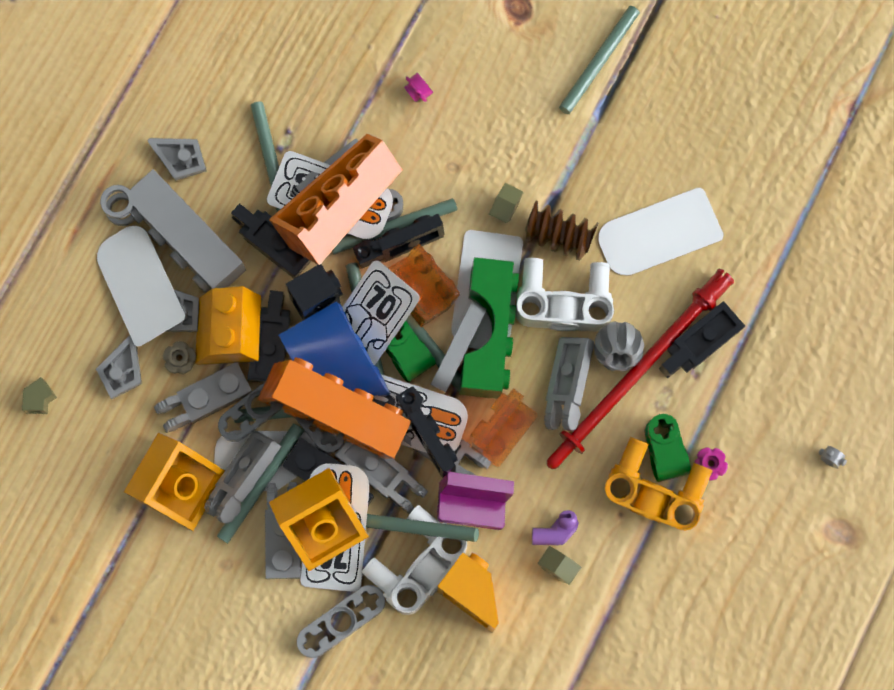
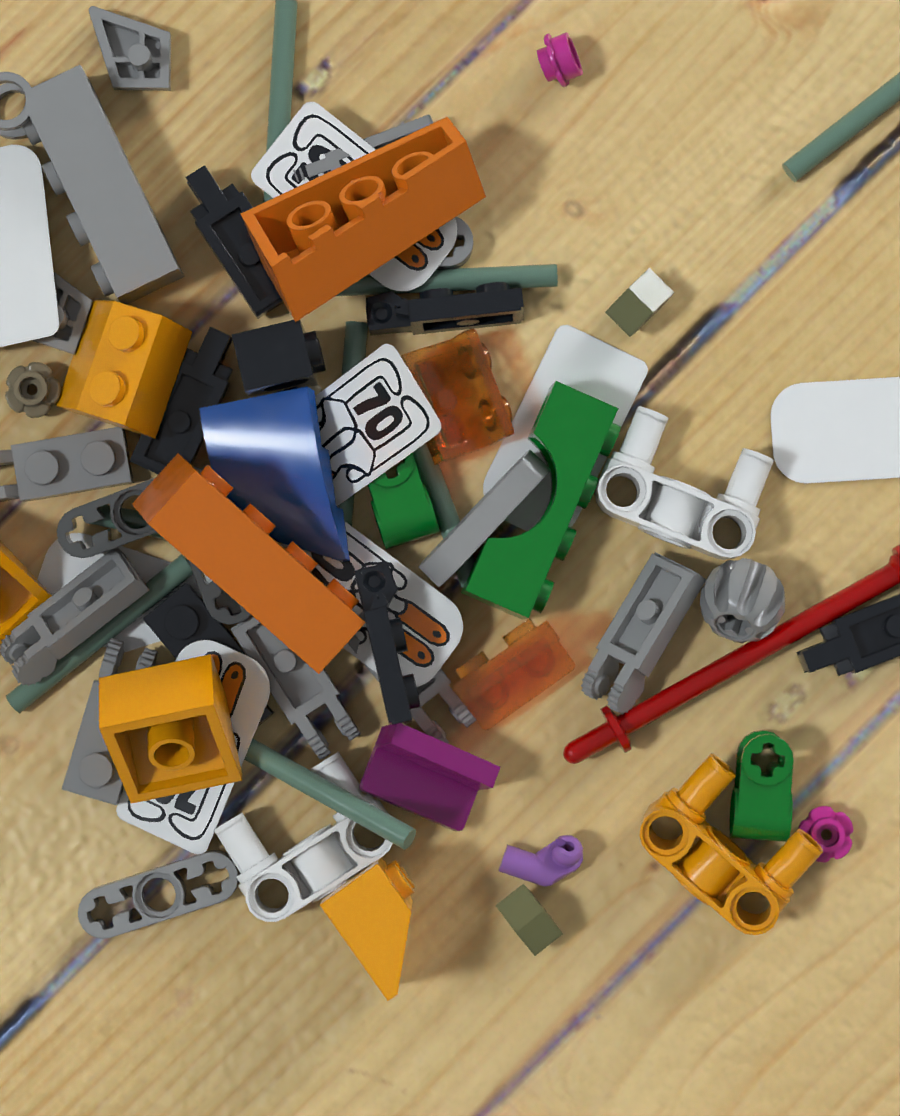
camera: 20 degrees right, 10 degrees up
(559, 231) = (712, 378): reddish brown piece -> none

